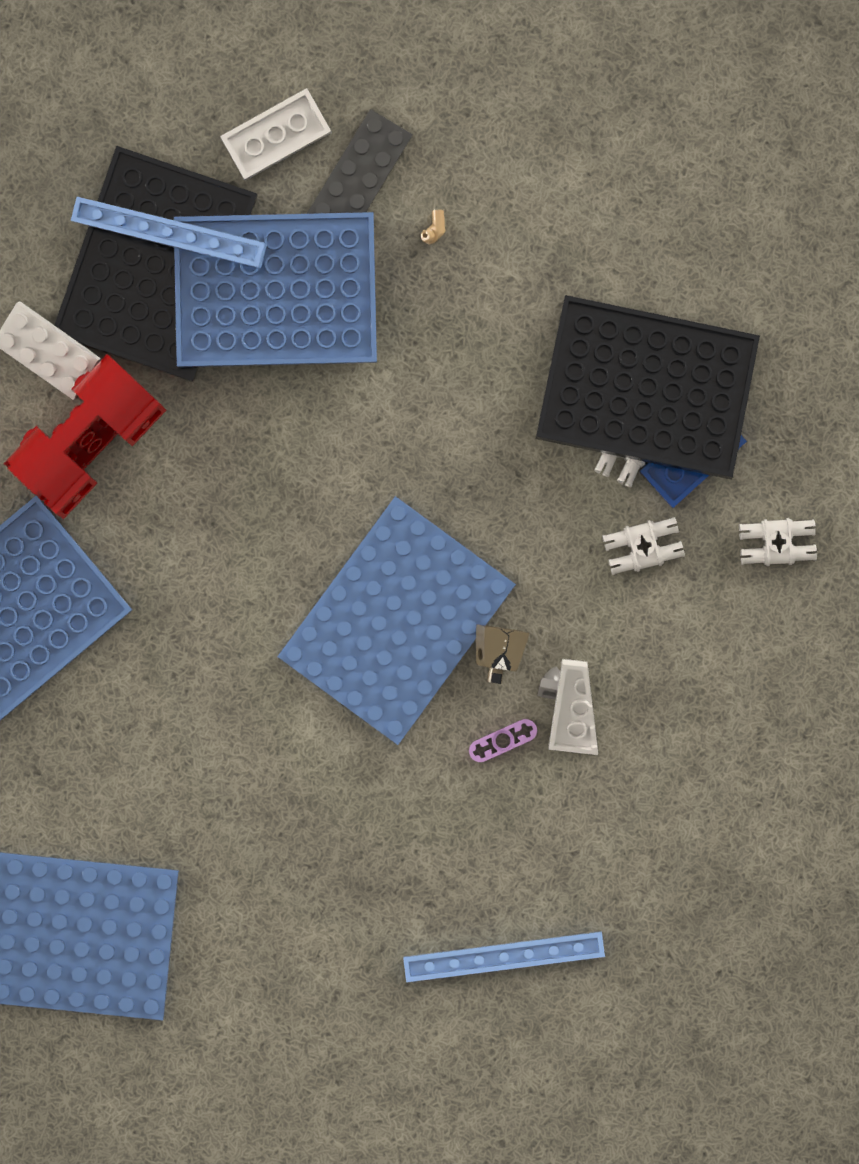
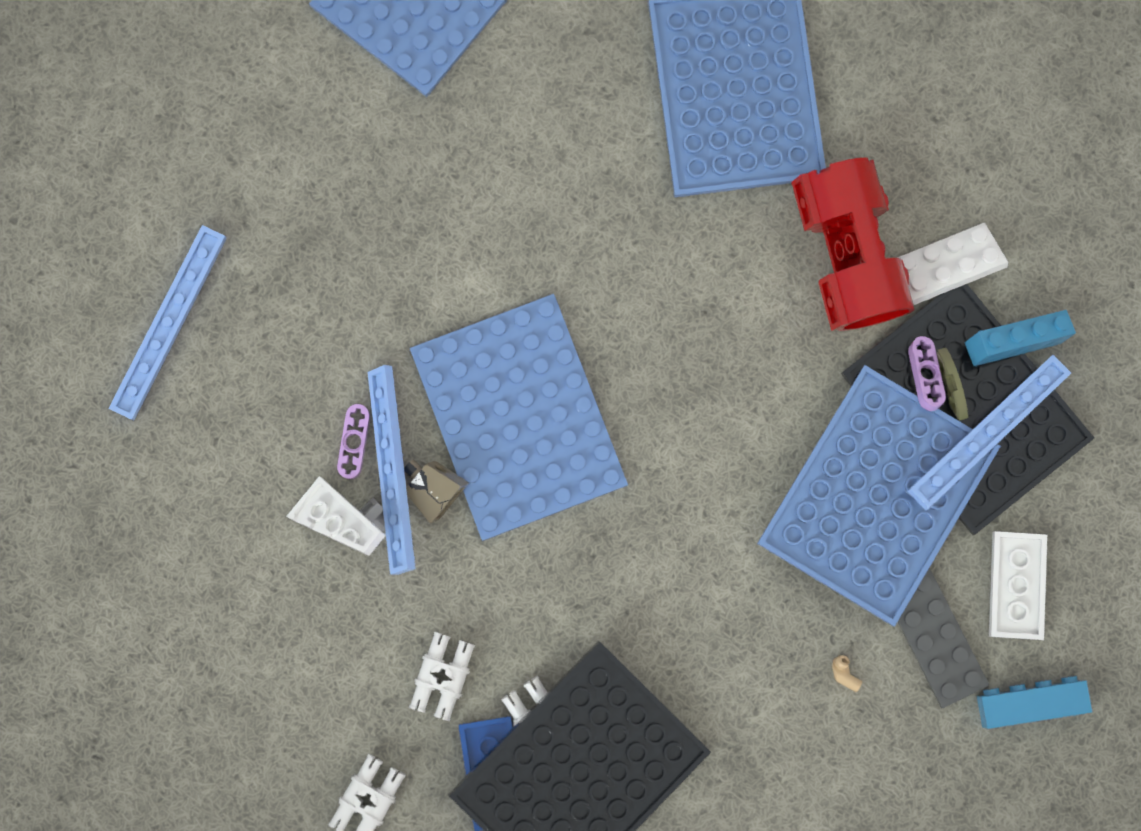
camera: 120 degrees right, 5 degrees down
(74, 255) = (1020, 337): none -> dark azure brick
(147, 286) = (953, 384): none -> olive tile
(162, 312) = (922, 384): none -> lavender beam
(362, 64) = (1034, 703): none -> dark azure brick
(506, 693) = (391, 470): none -> light blue plate

